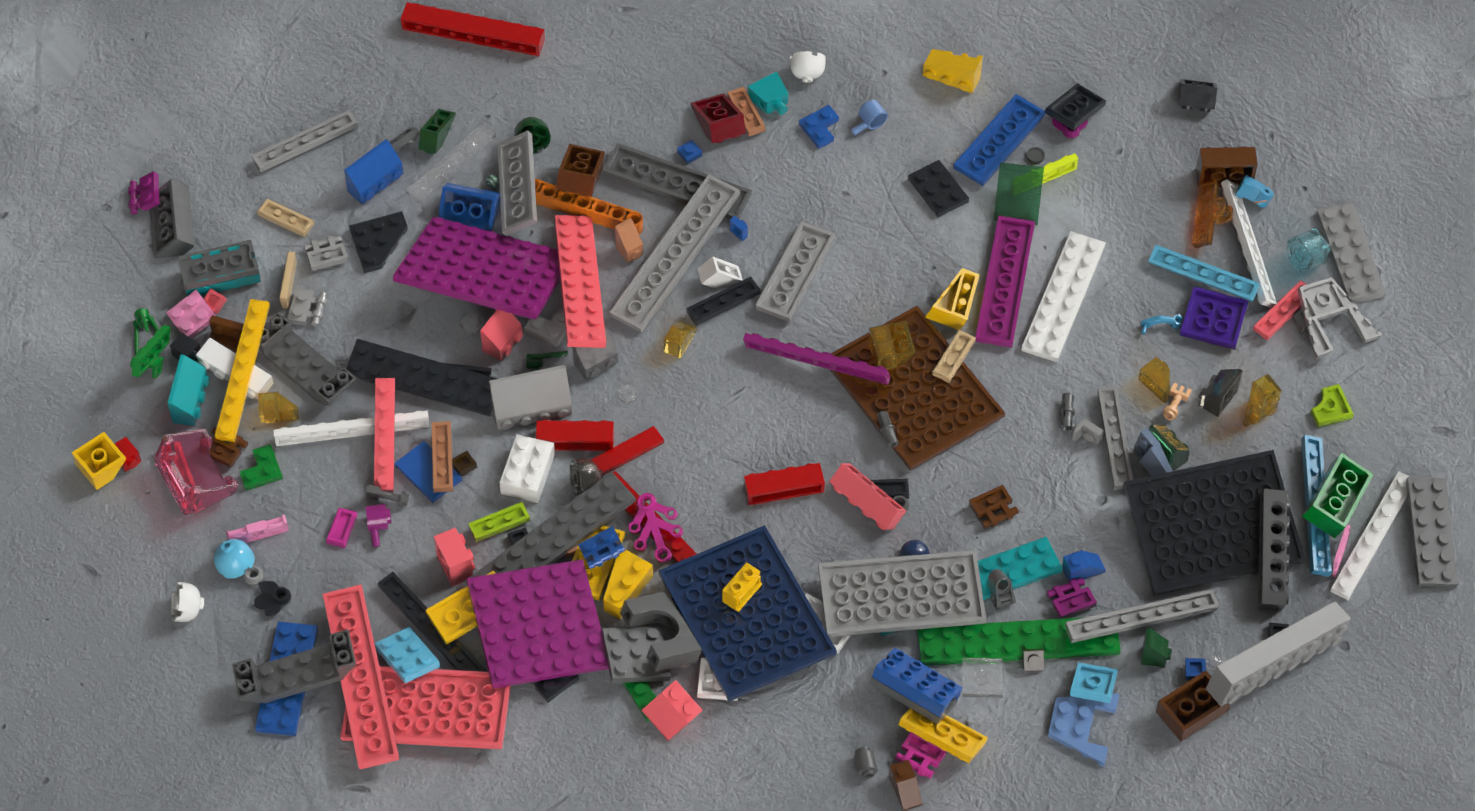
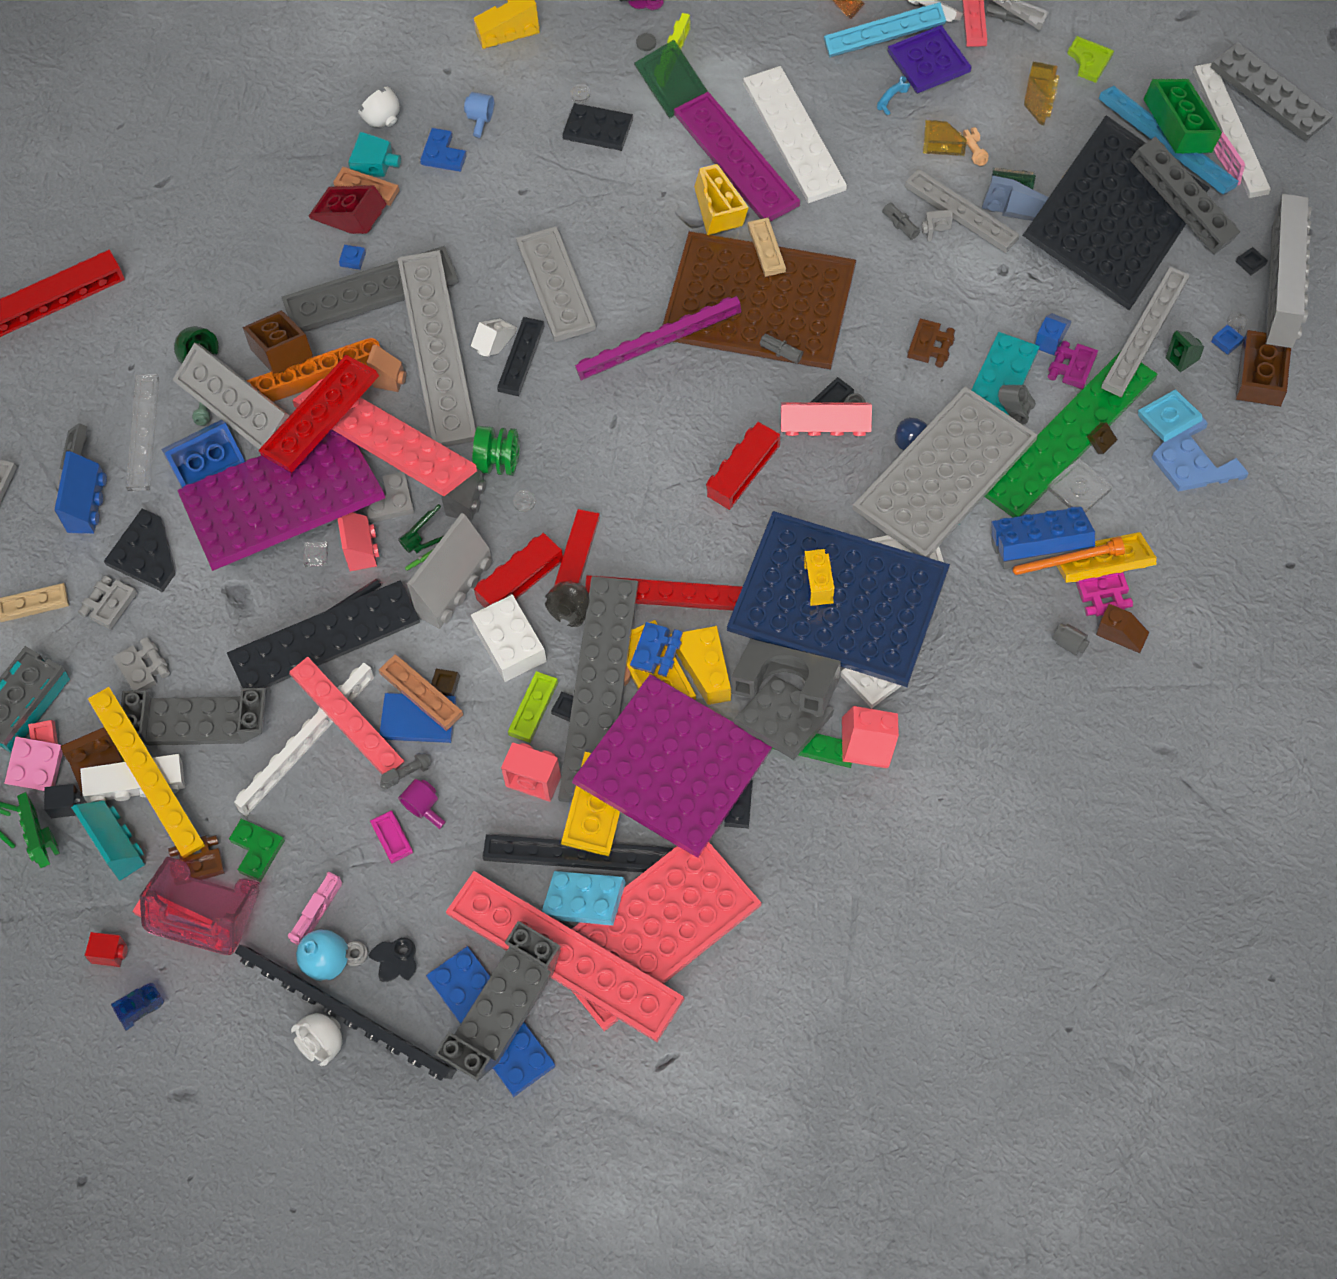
camera: 40 degrees left, 5 degrees up
(99, 460) = (87, 977): yellow slope -> none
(111, 499) = (137, 1004): none -> clear blue leg
(212, 596) = (352, 1017): none -> black plate
(275, 408) = (211, 779): clear yellow slope -> none
(288, 279) = (97, 655): tan tile -> none
(435, 131) = (99, 413): dark green slope -> none
(555, 235) = (318, 413): none -> red plate
(639, 347) = (498, 450): none -> green wheel
(654, 525) = (675, 591): dark pink plant -> none
(678, 338) = (518, 417): clear yellow slope -> none
(739, 228) = (467, 285): blue plate -> none
(891, 344) = (709, 276): clear yellow slope -> none
(951, 728) = (1112, 547): none -> orange piece
(999, 139) = (605, 51): blue plate -> none
(1220, 391) = (1001, 107): clear smoke slope -> none

